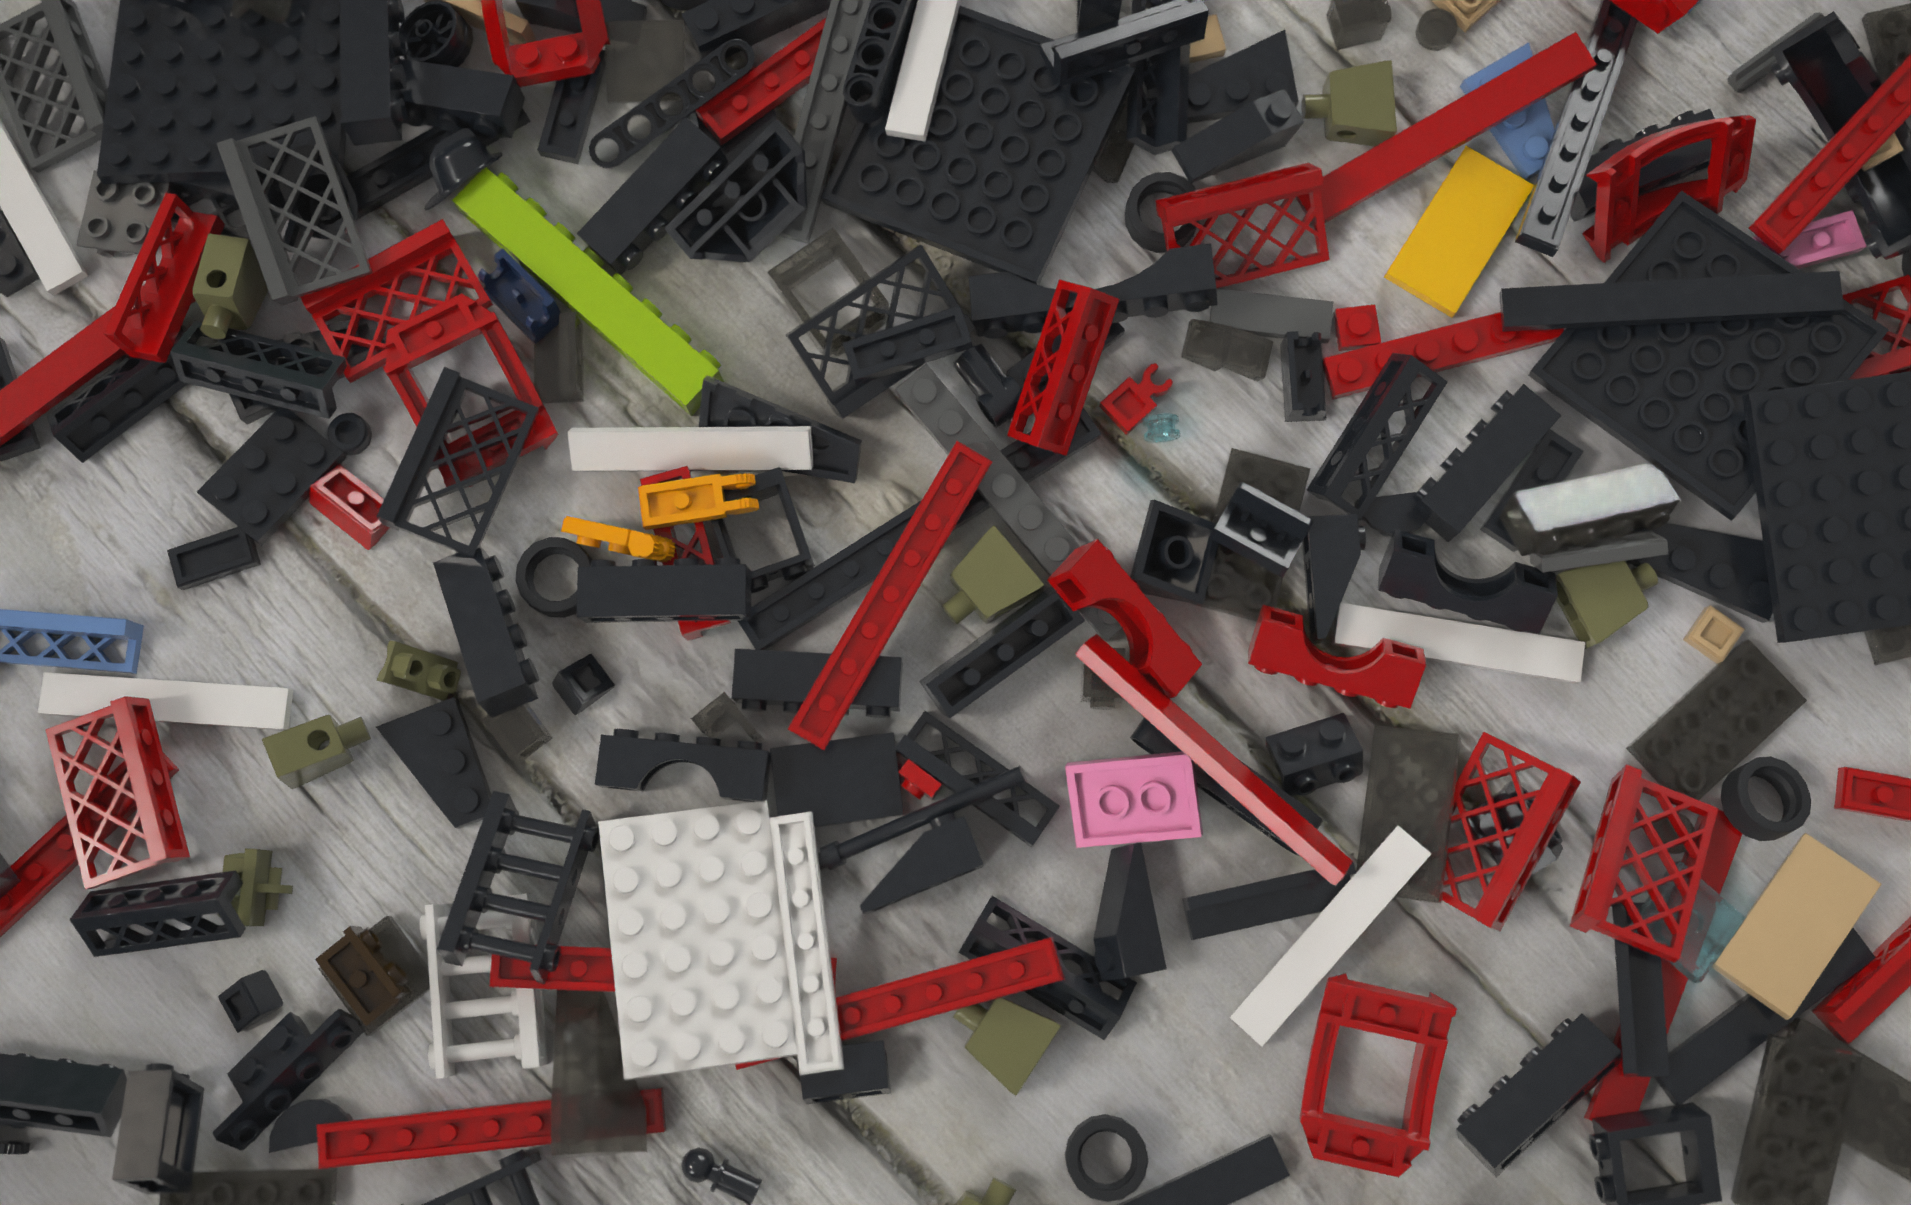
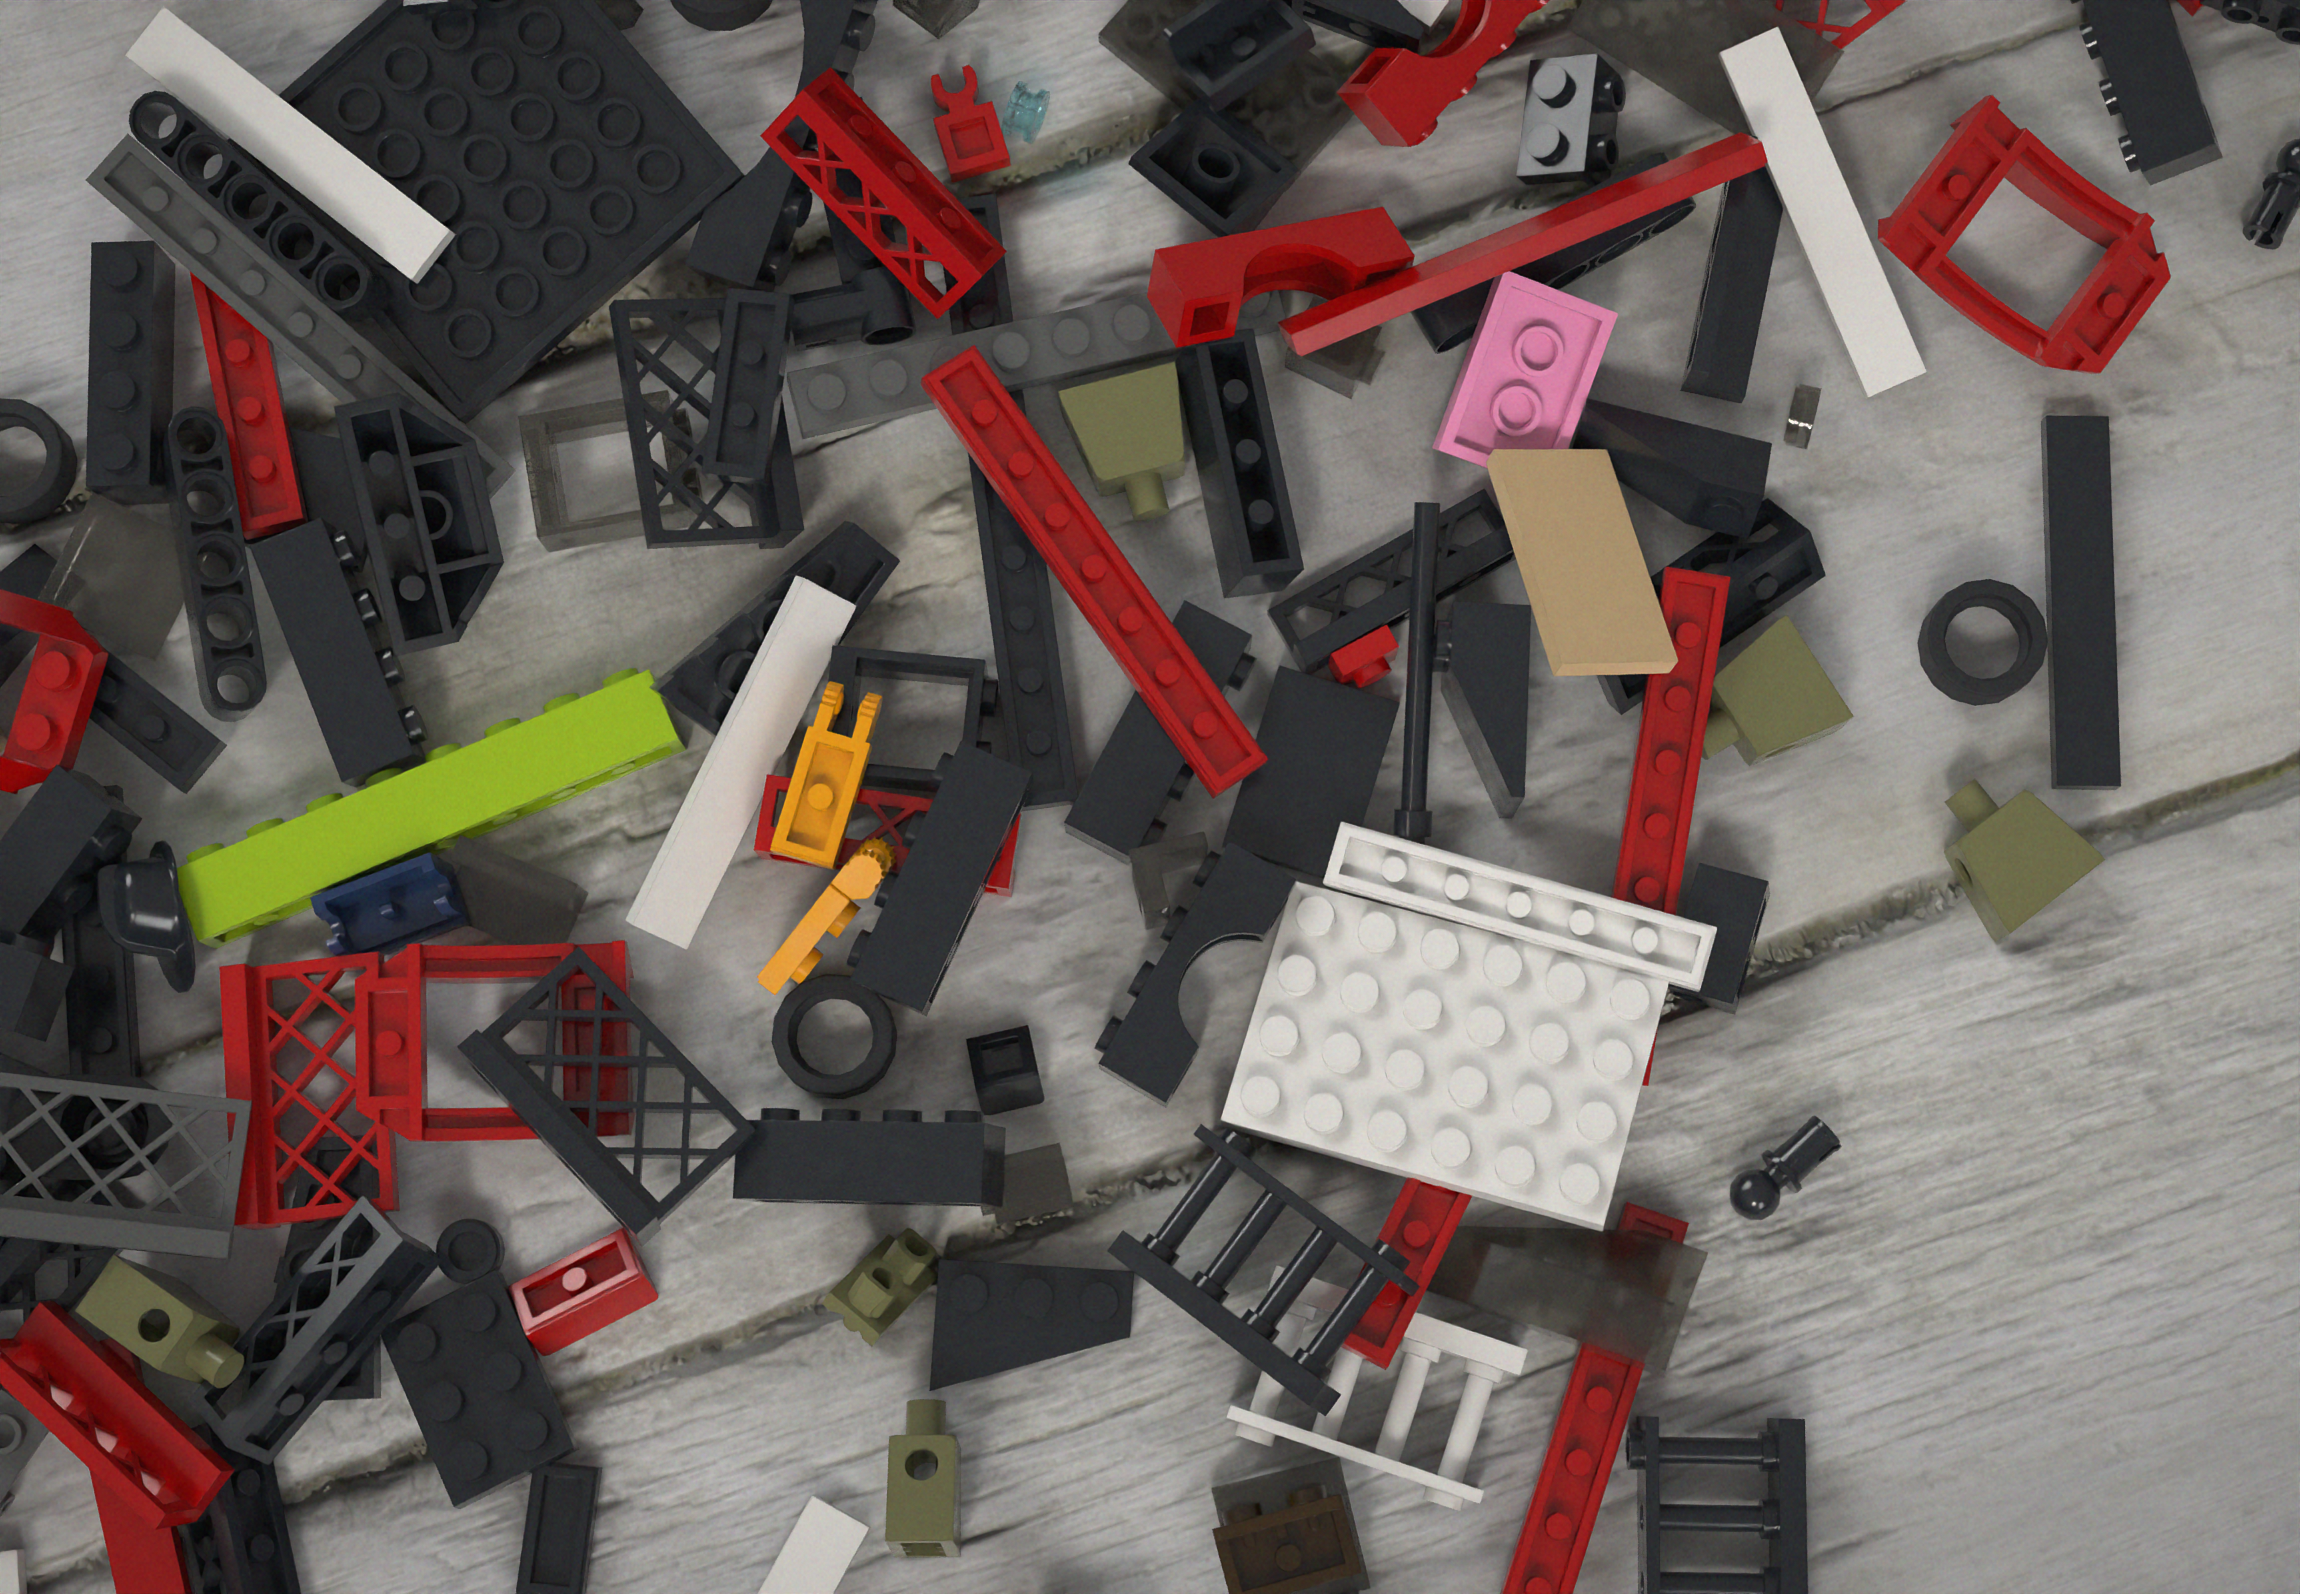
camera: 65 degrees left, 0 degrees up
(1029, 883) = (1581, 562): none -> tan tile
(1196, 980) = (1802, 416): none -> clear smoke tile

